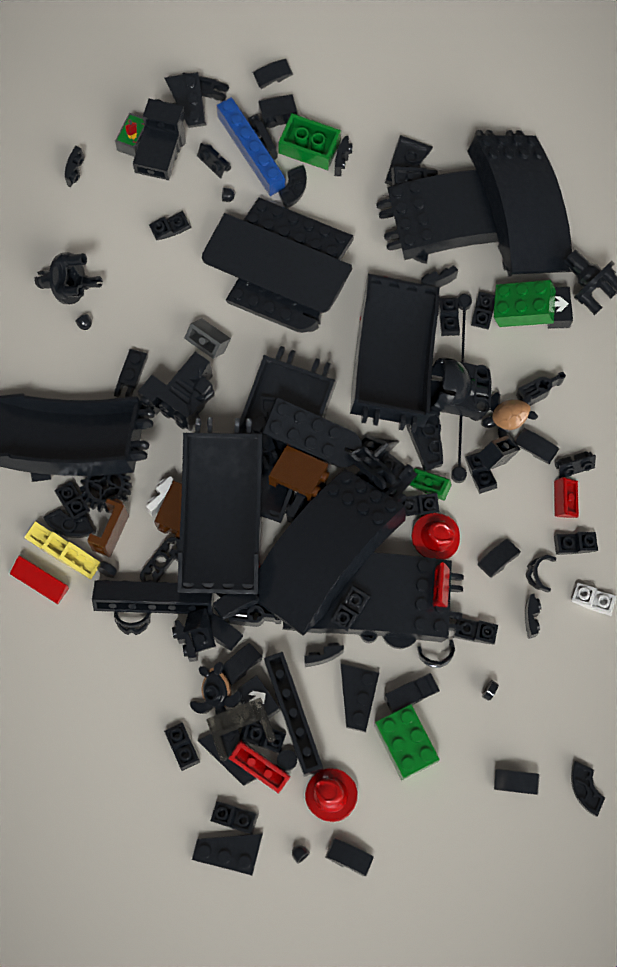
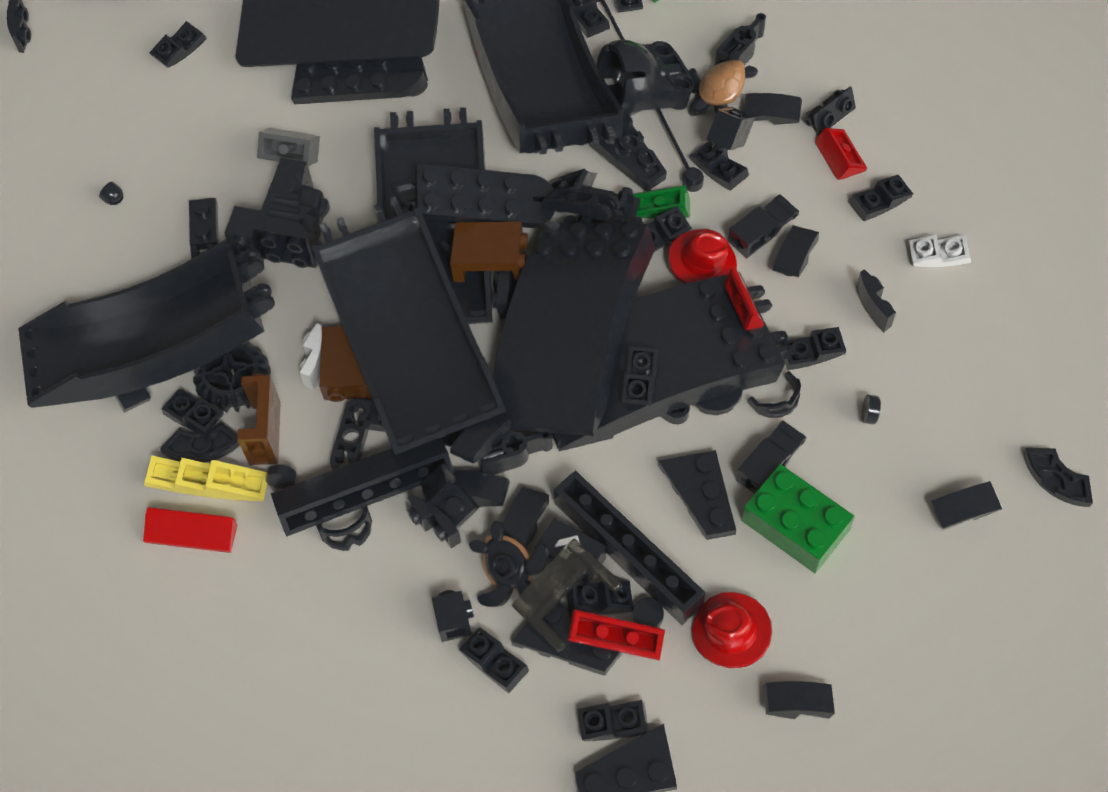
camera: 20 degrees left, 10 degrees down
(67, 278) = (65, 144): black piece -> none
(169, 707) = (452, 615): none -> black brick
(300, 853) = (728, 726): black hinge -> none
(331, 652) = (637, 453): black slope -> none
(487, 529) = (761, 225): none -> black piece
(538, 585) = (863, 262): black helmet -> none

